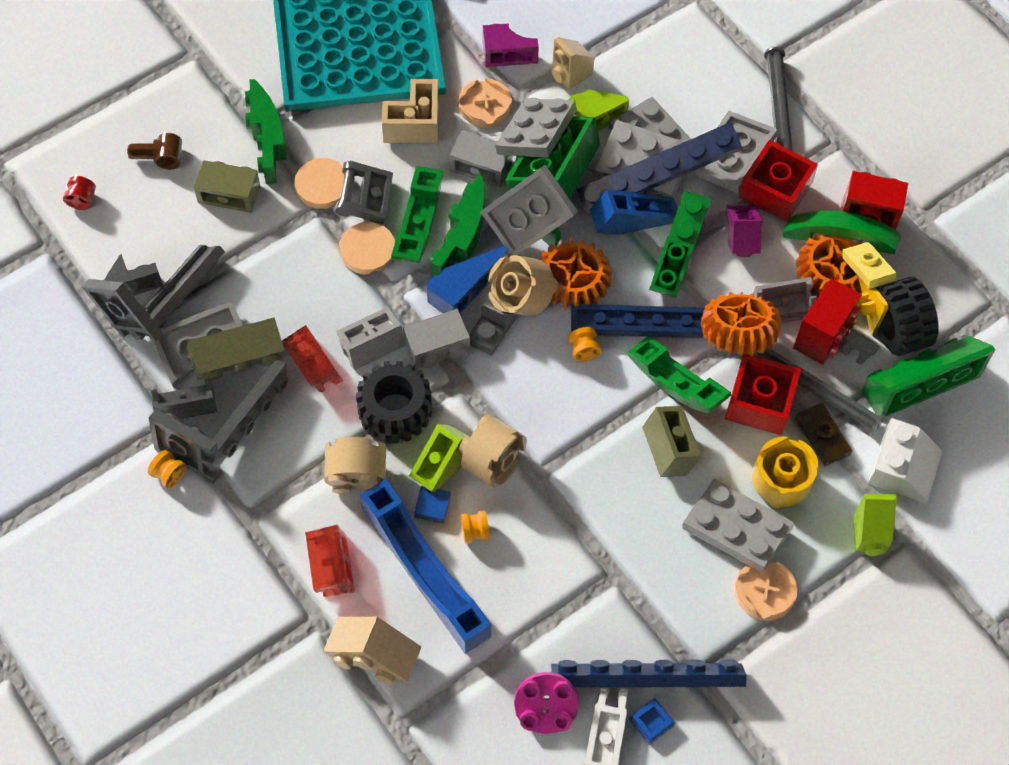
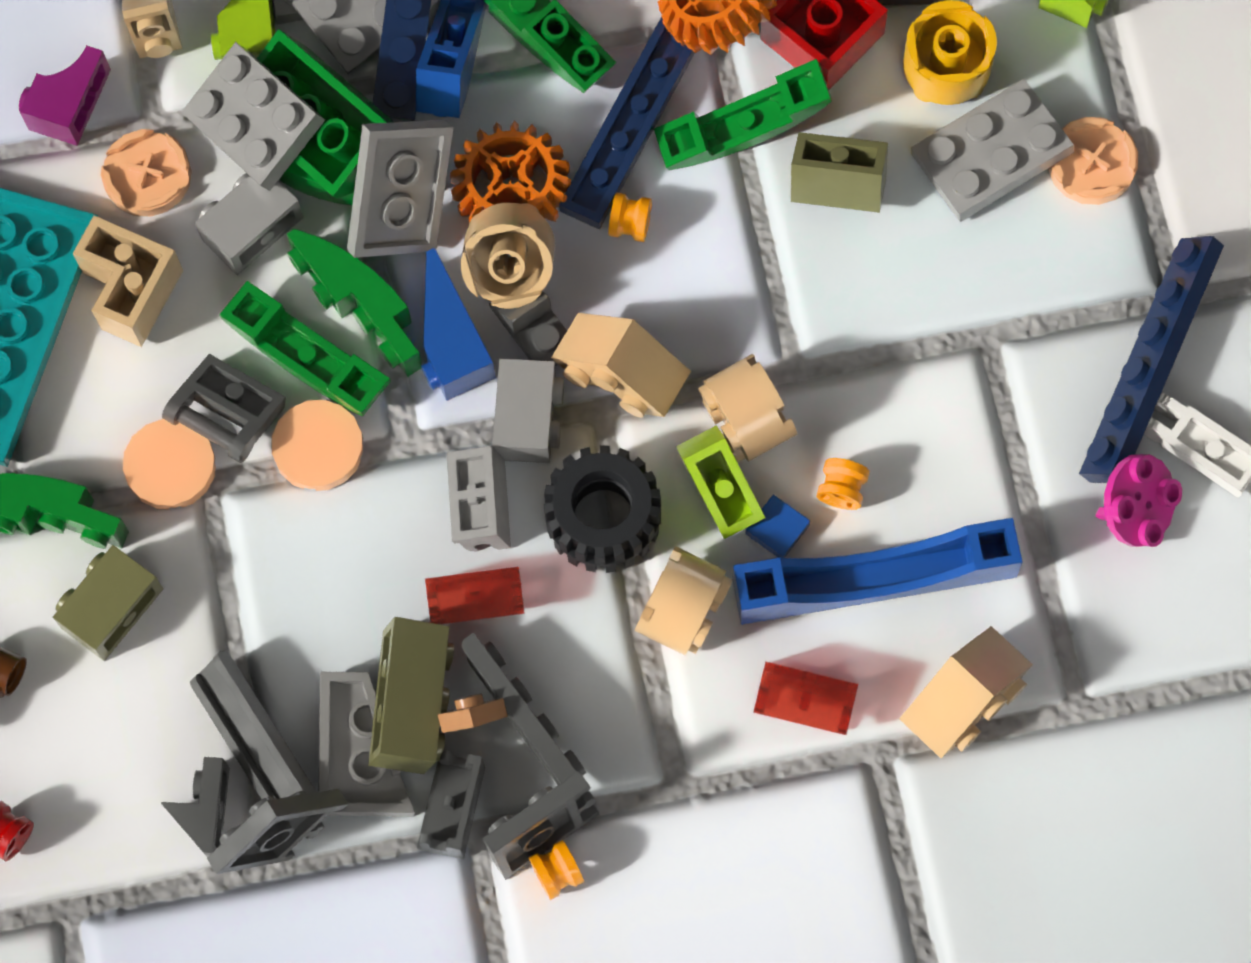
camera: 60 degrees left, 10 degrees up
(235, 380) = (472, 712): none -> medium nougat plate
(487, 375) = (621, 360): none -> tan brick
(652, 721) = (1210, 384): blue tile -> none

